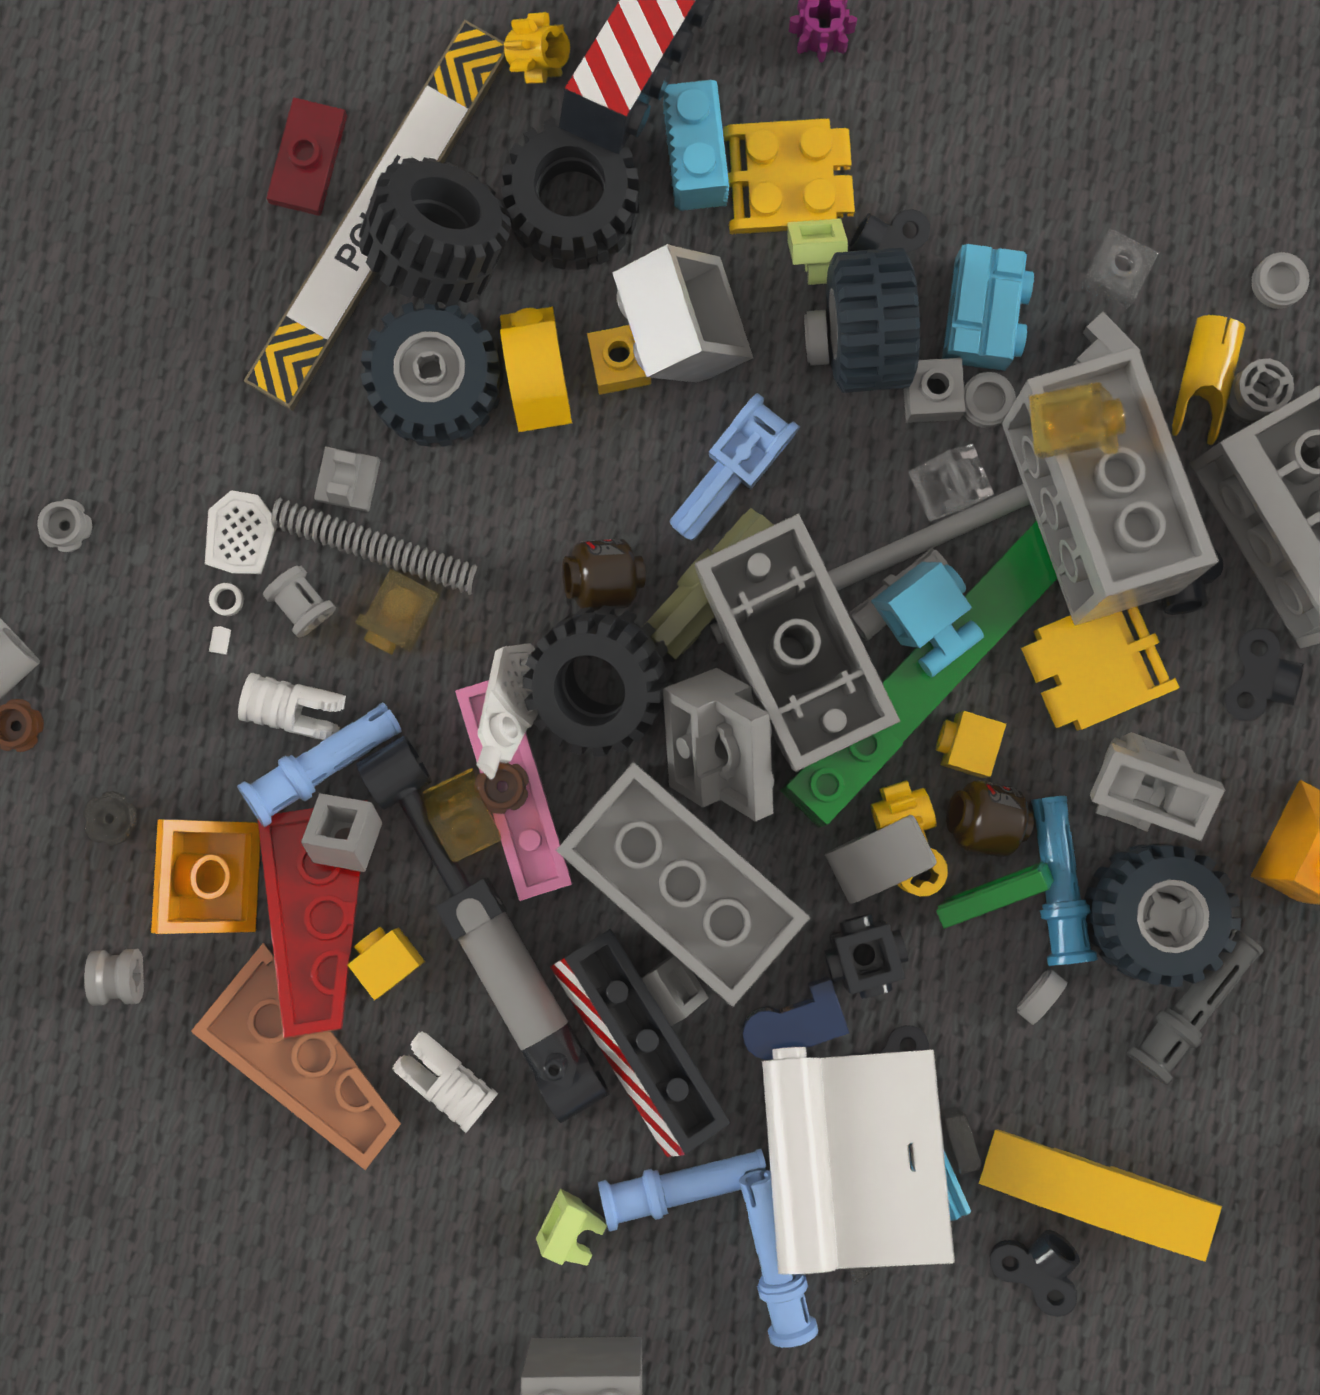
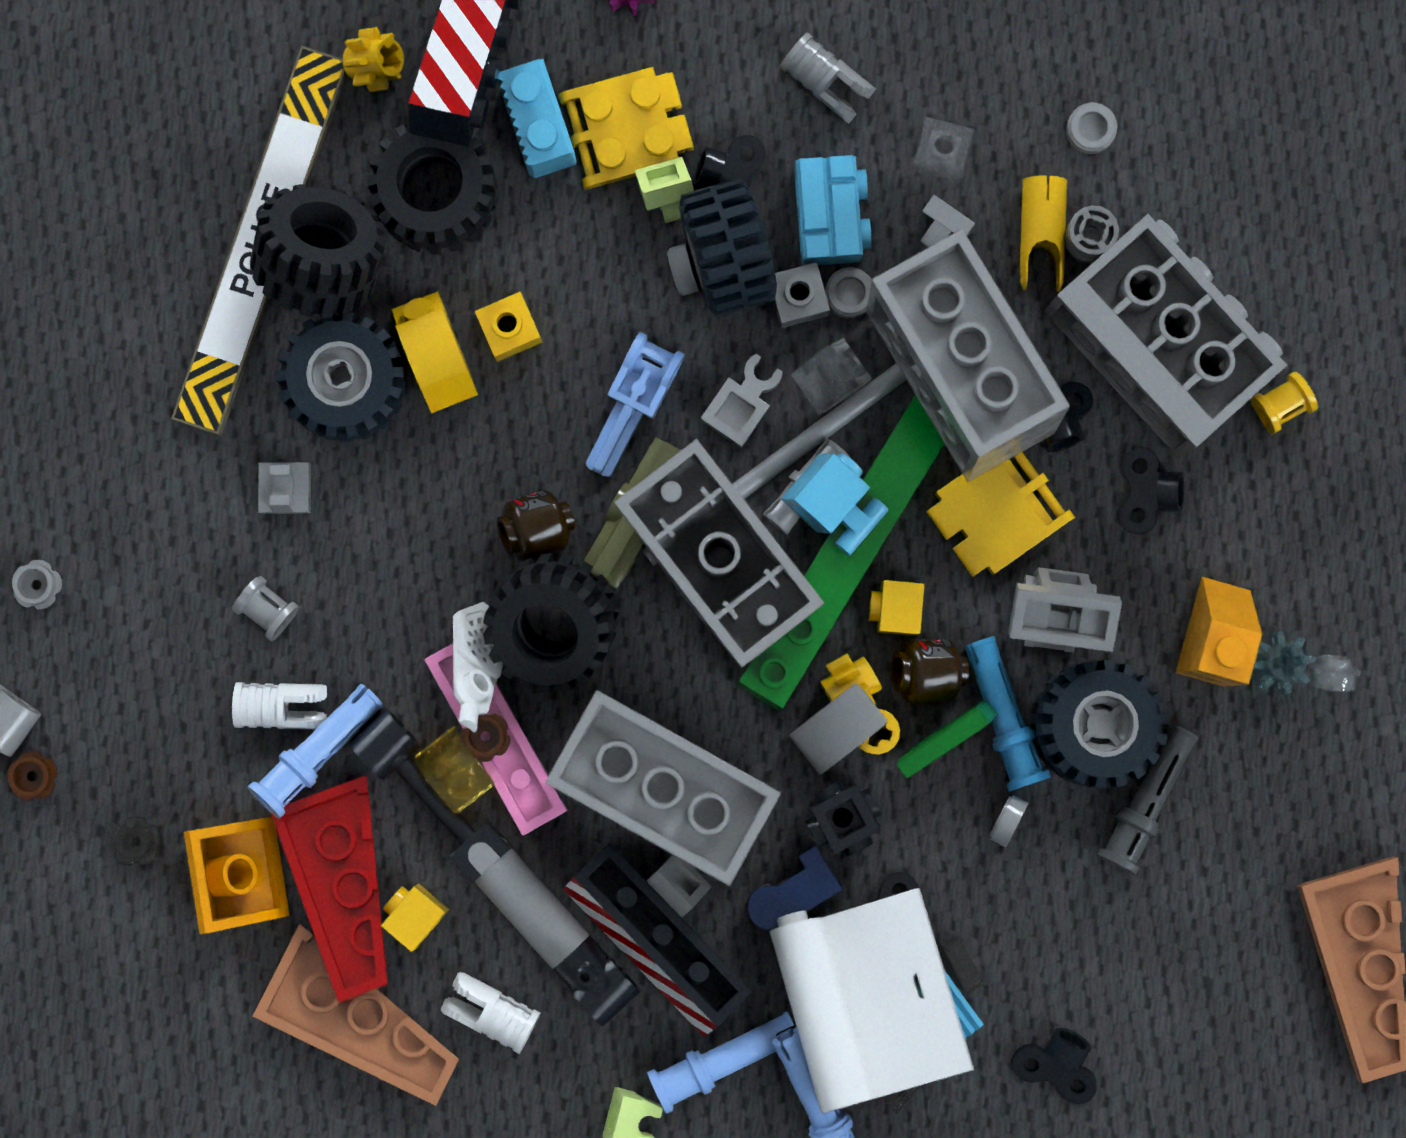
camera: 15 degrees left, 0 degrees up
(114, 977) = (172, 983): light grey wheel -> none
(216, 557) = (180, 583): white piece -> none
(306, 156) = (184, 200): dark red plate -> none
(335, 821) = (342, 800): light grey plate -> none
(378, 557) = (352, 555): light grey piece -> none
(397, 613) = (357, 600): clear yellow bracket -> none
(681, 315) = (556, 278): light grey piece -> none
(719, 743) = (670, 656): light grey brick -> none
(846, 495) = (737, 407): none -> light grey plate
(1003, 158) = (819, 69): none -> light grey hinge
(1076, 420) = (920, 309): clear yellow bracket -> none
(1101, 1195) = (1097, 986): yellow slope -> none

